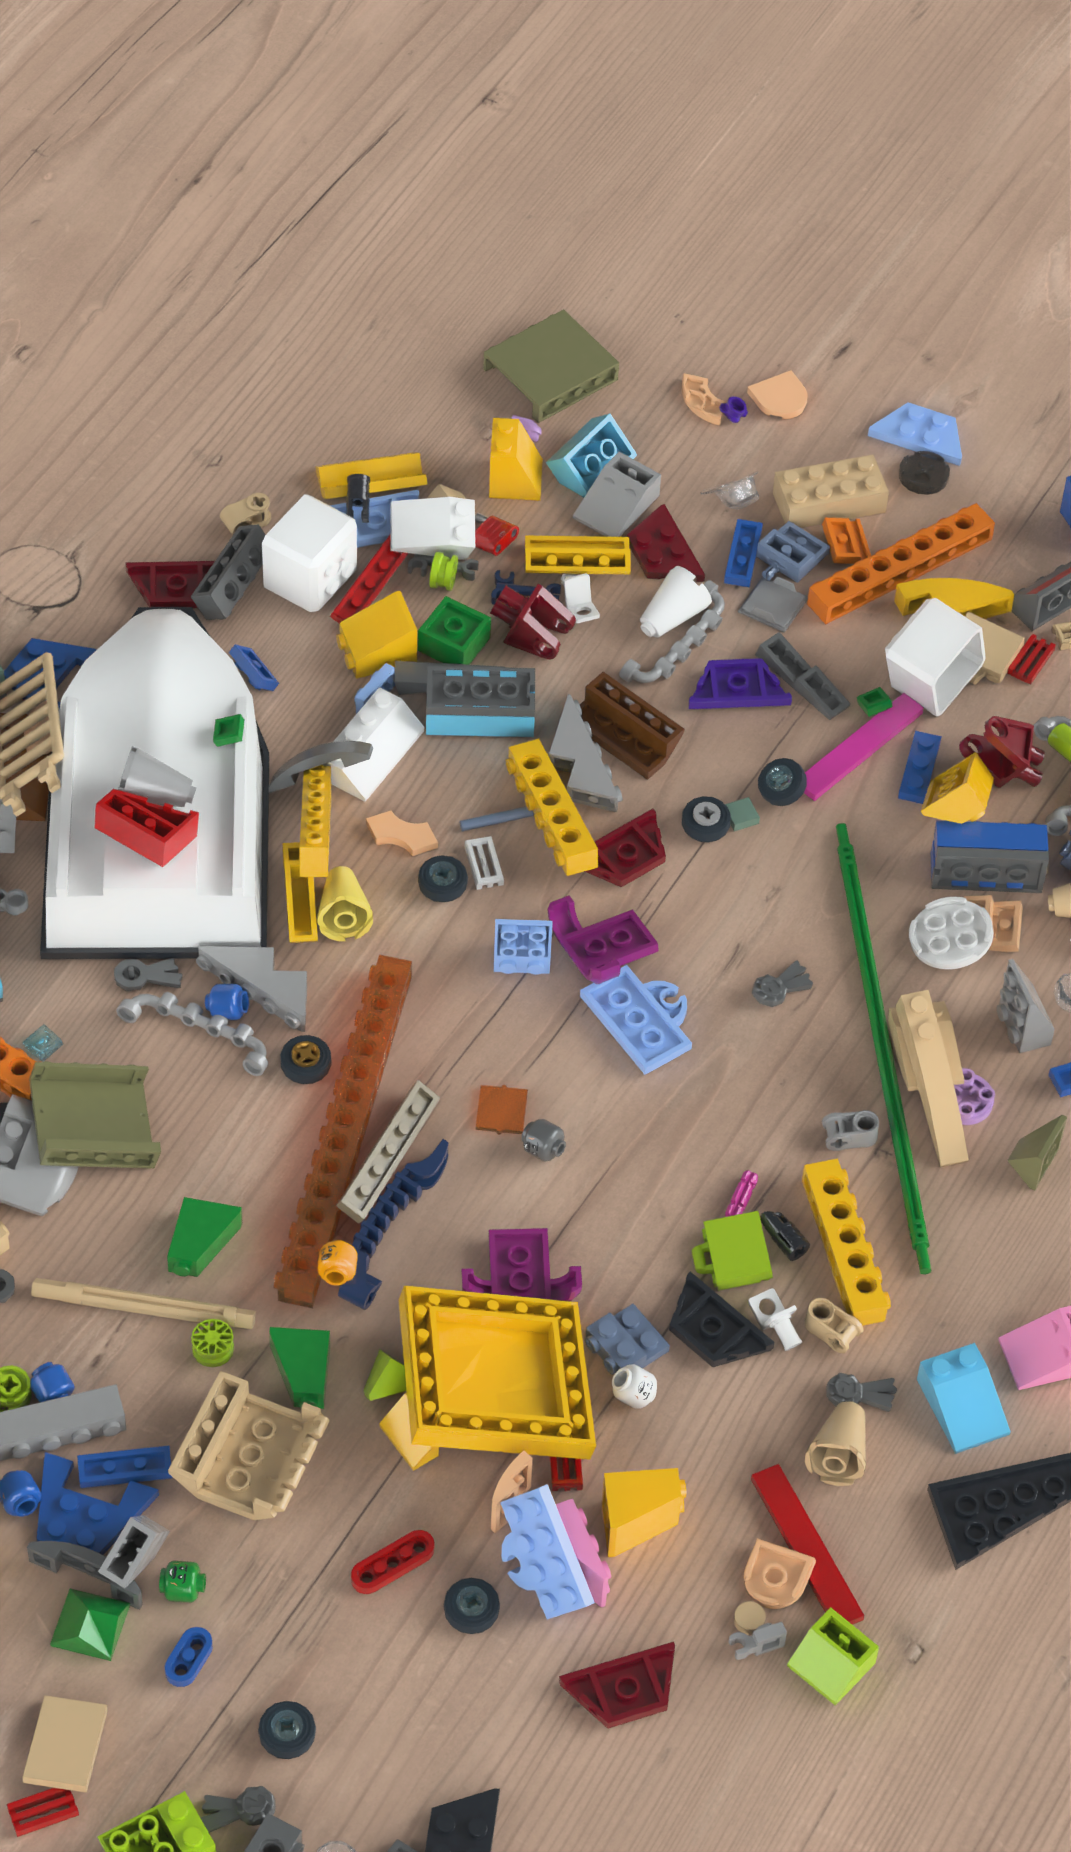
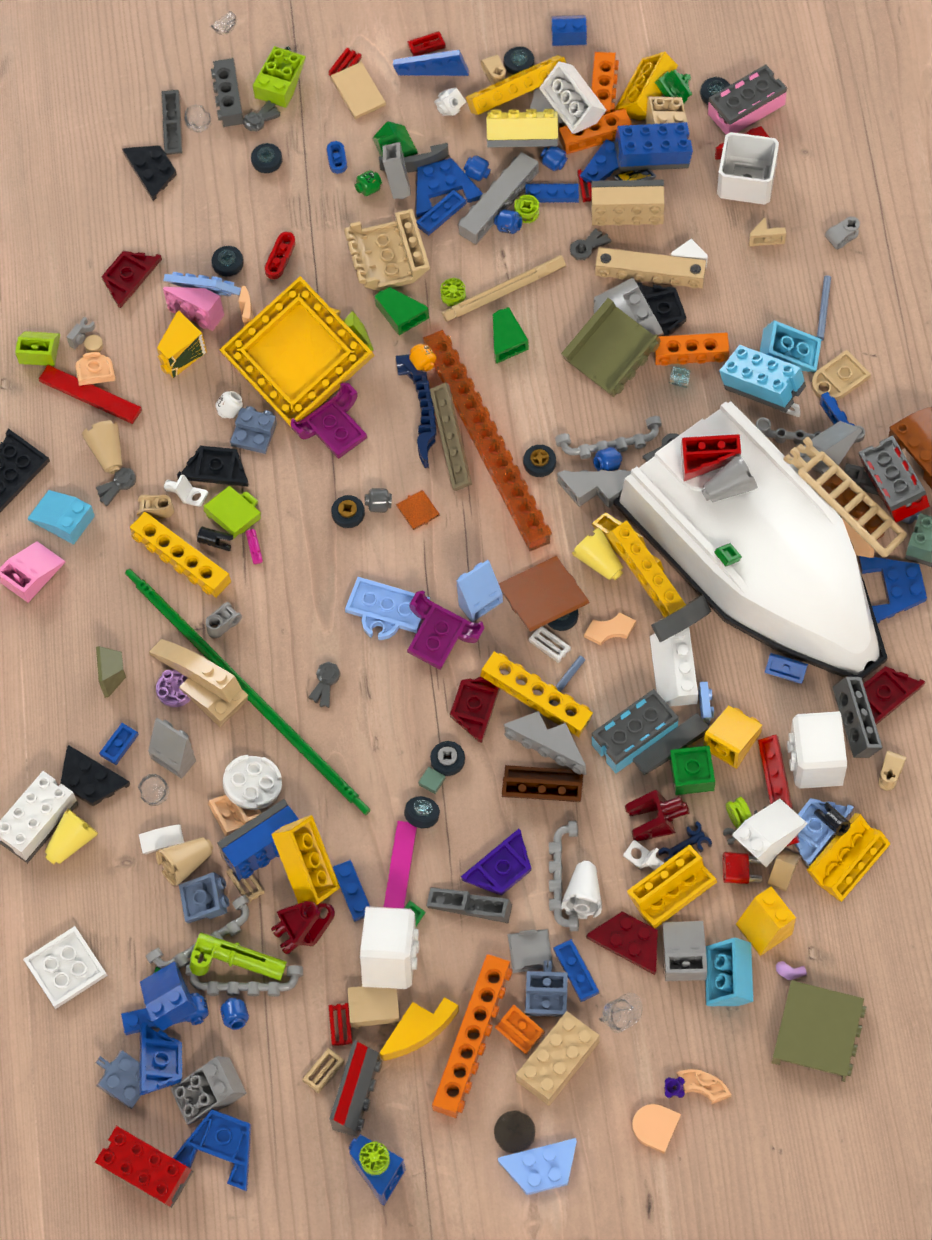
camera: 150 degrees right, 10 degrees up
(445, 906) = (543, 593): none -> dark orange piece
(582, 1162) = (346, 518): none -> black wheel

